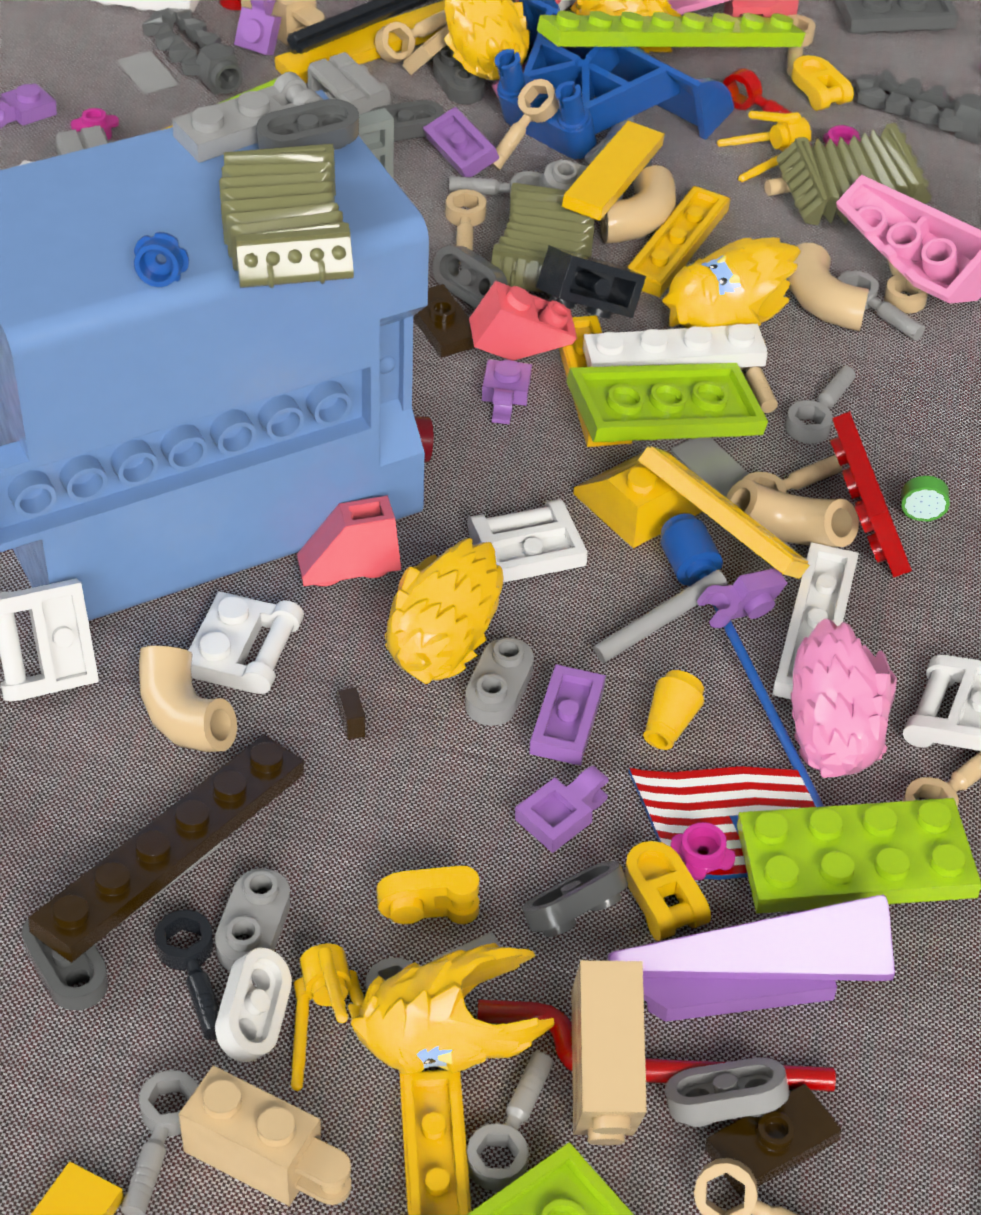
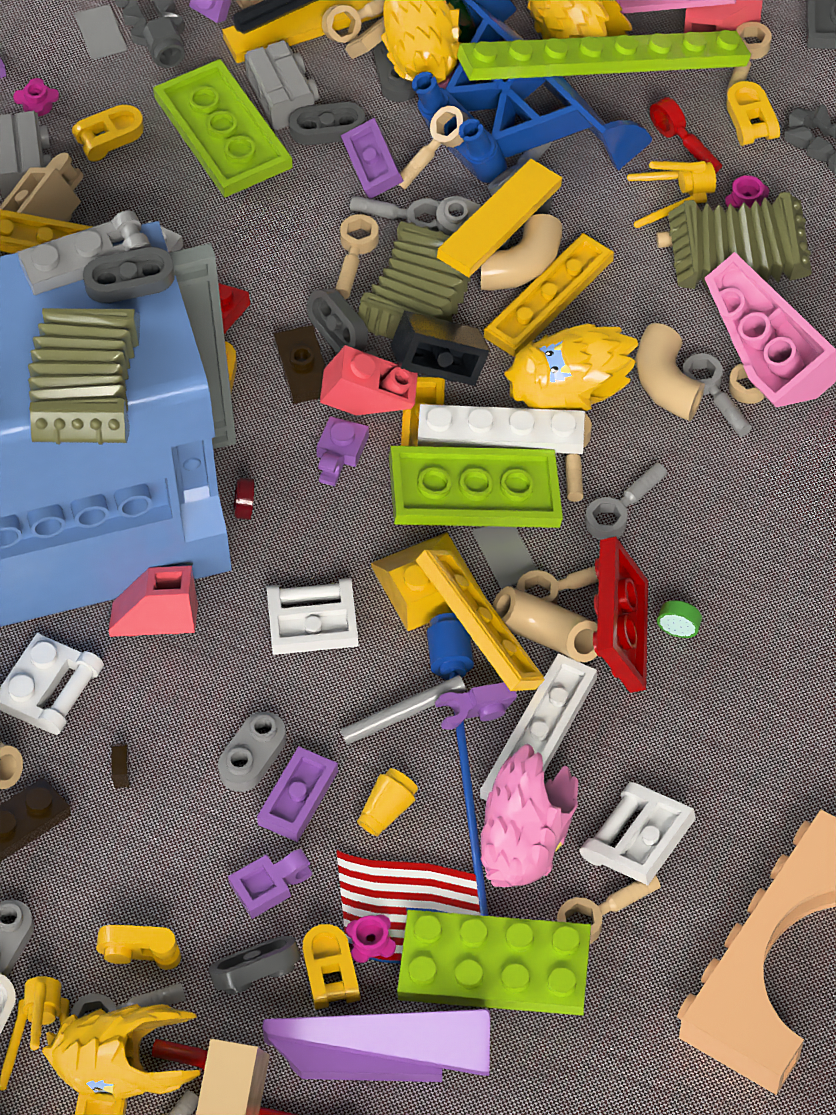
camera: 15 degrees right, 10 degrees up
(444, 610) = (213, 684): yellow head -> none

